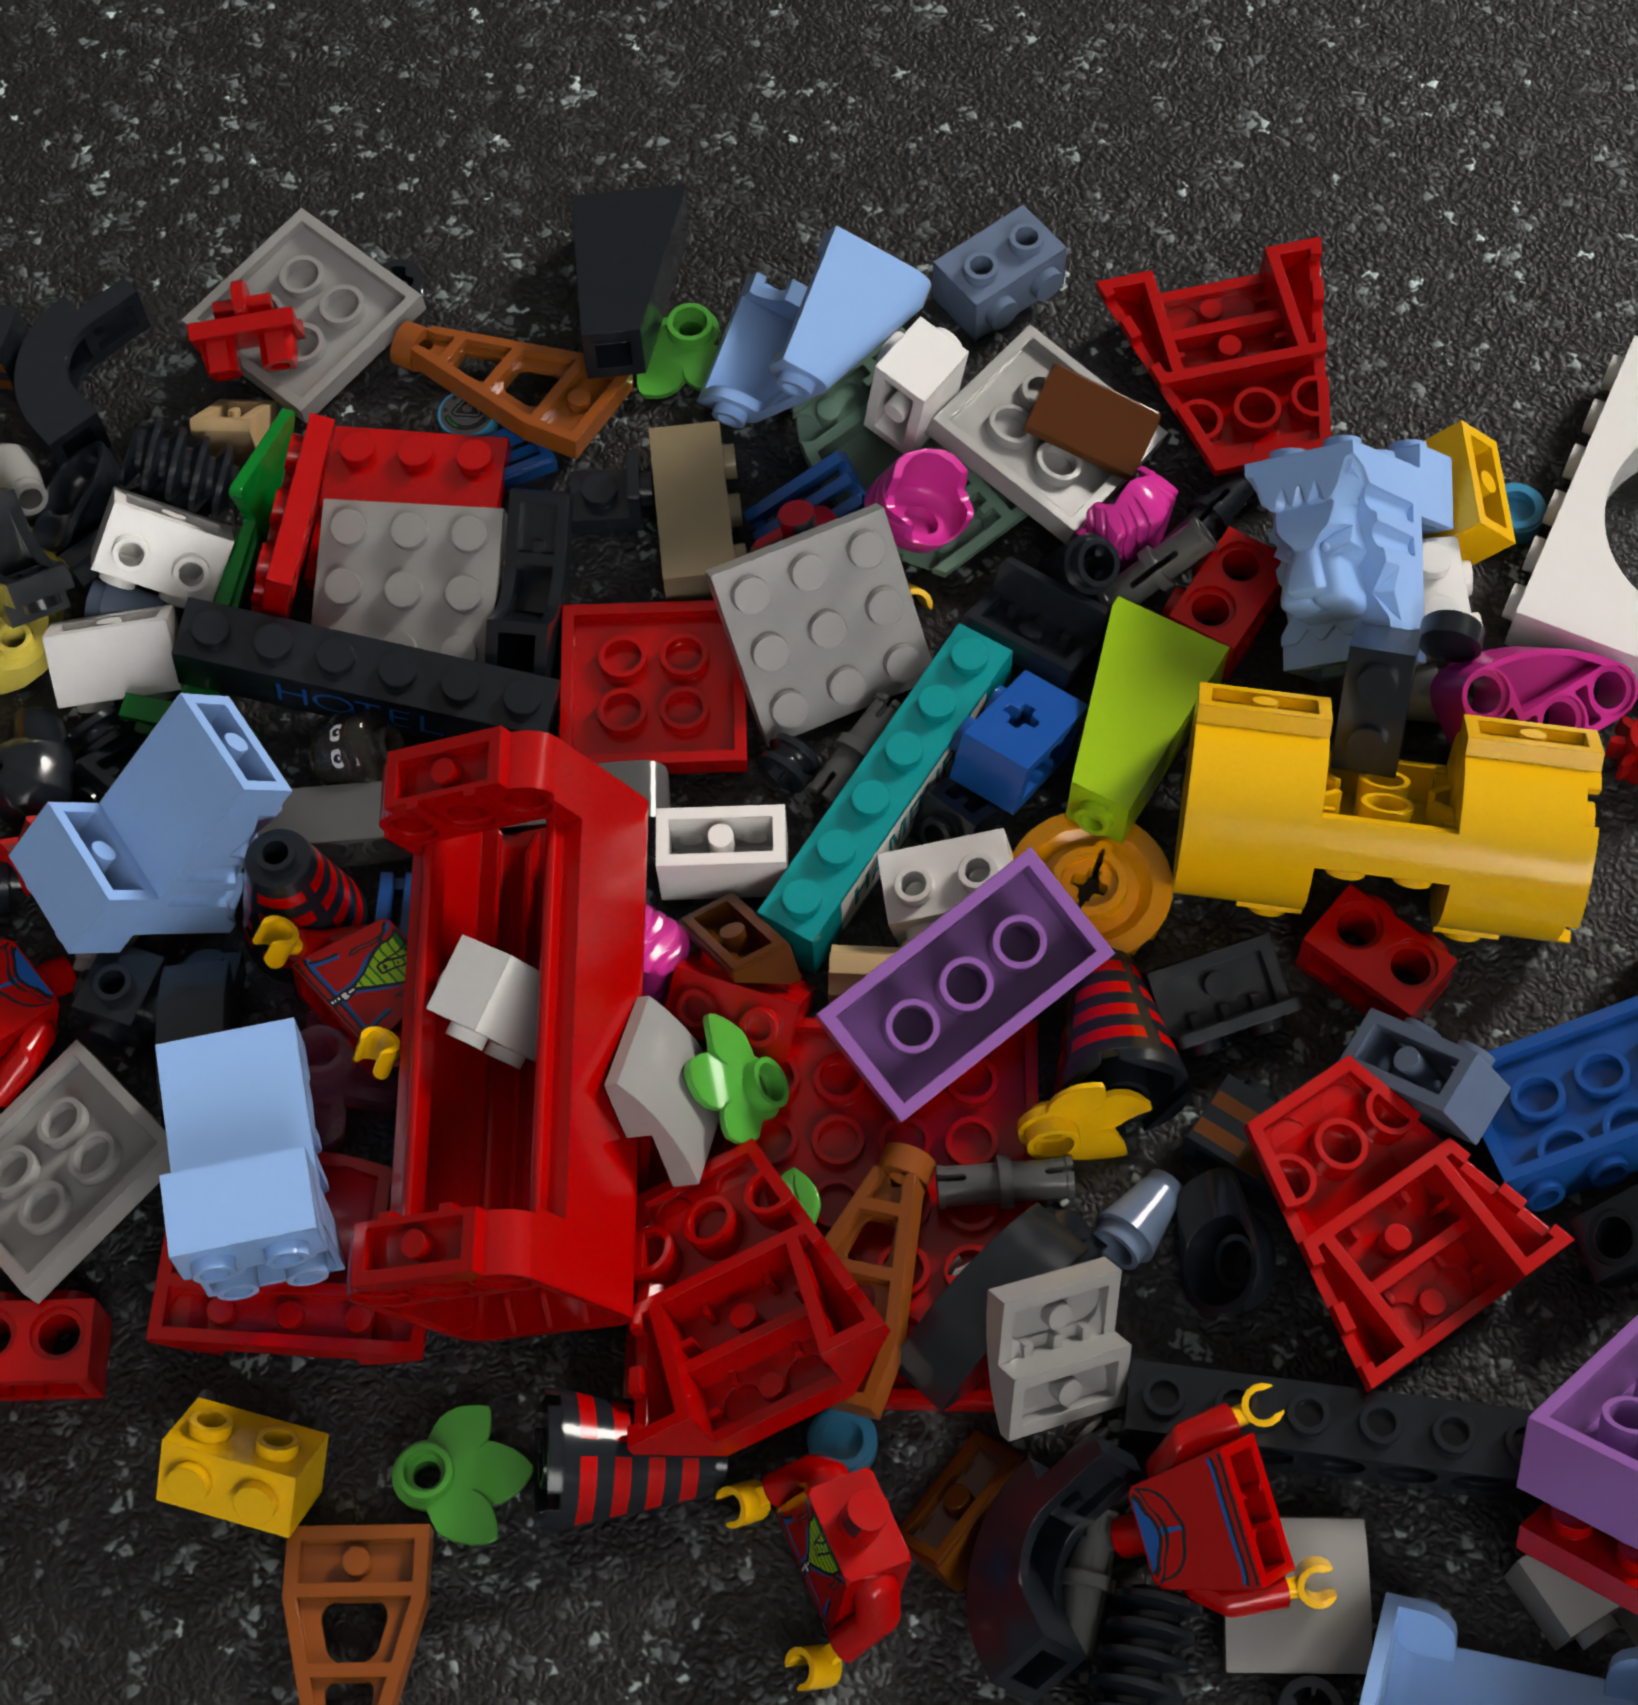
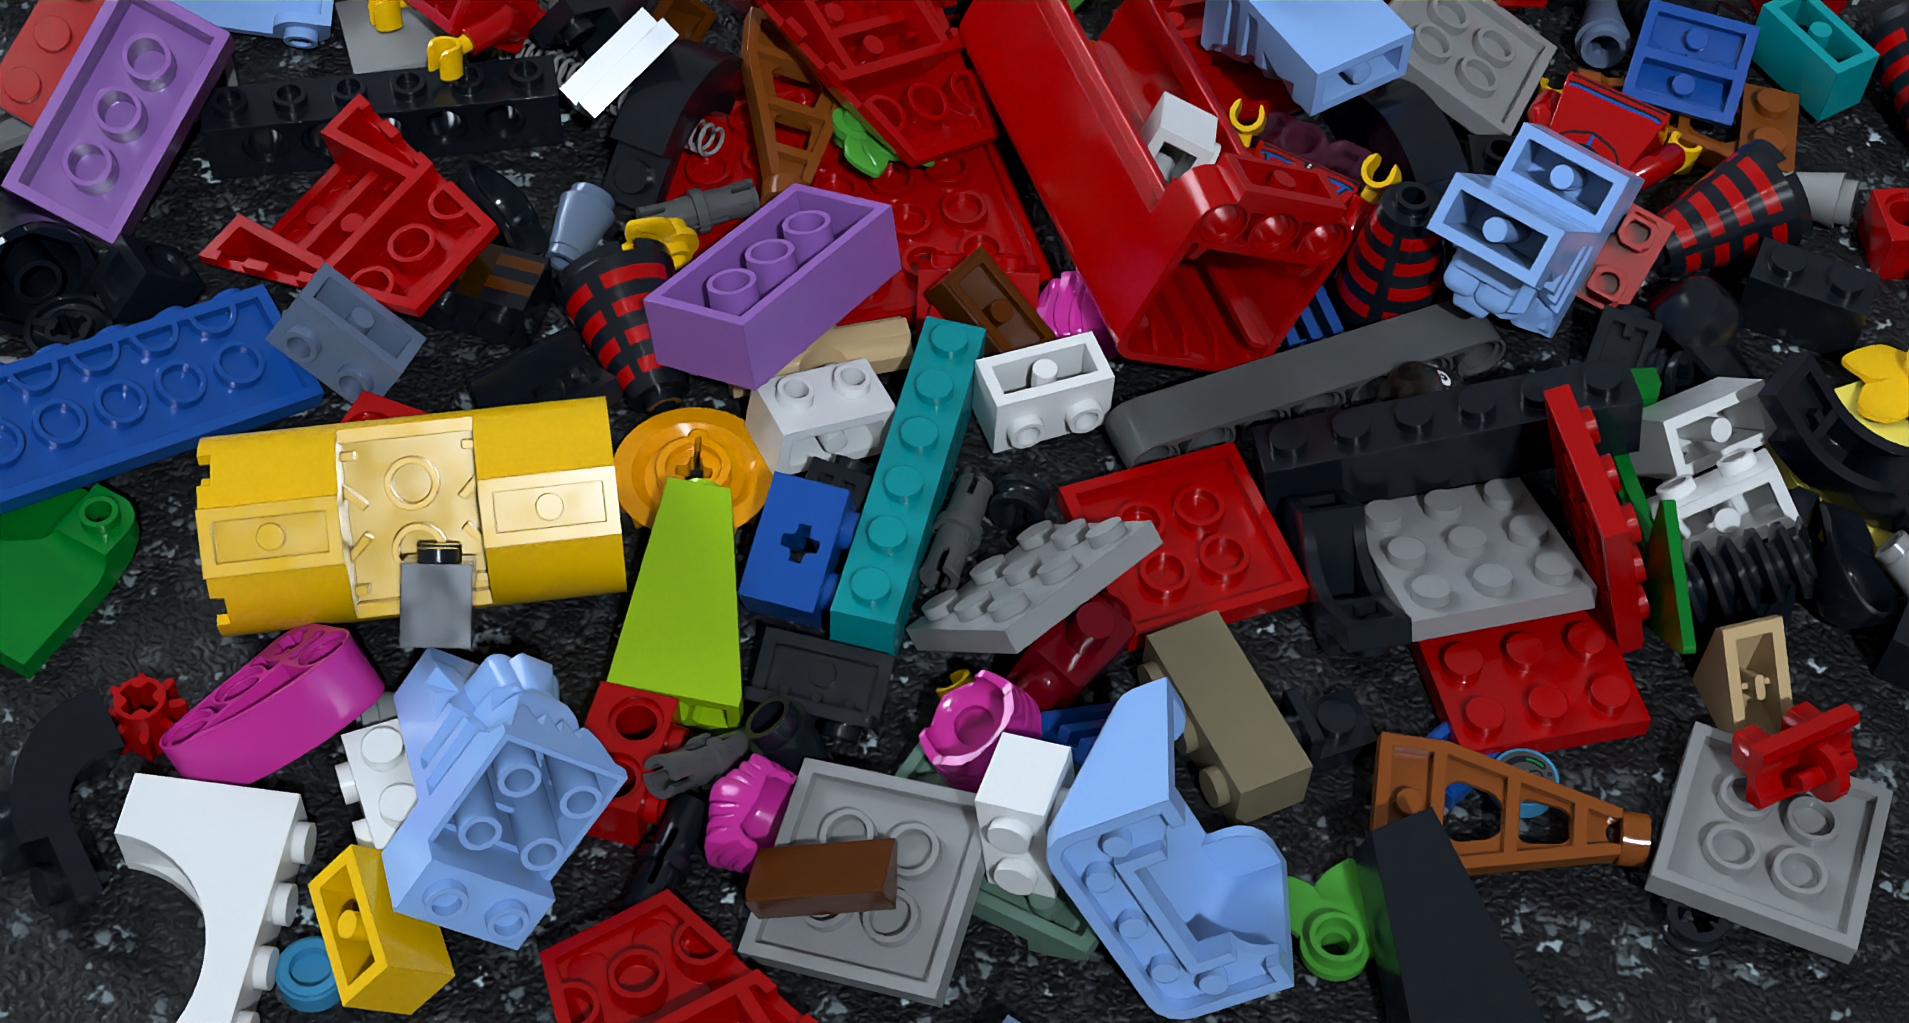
camera: 155 degrees right, 10 degrees down
(652, 1095) = (999, 156): light grey slope -> none
(735, 1081) = (949, 202): bright green plate -> none
(1451, 636) = (368, 695): black tile -> none

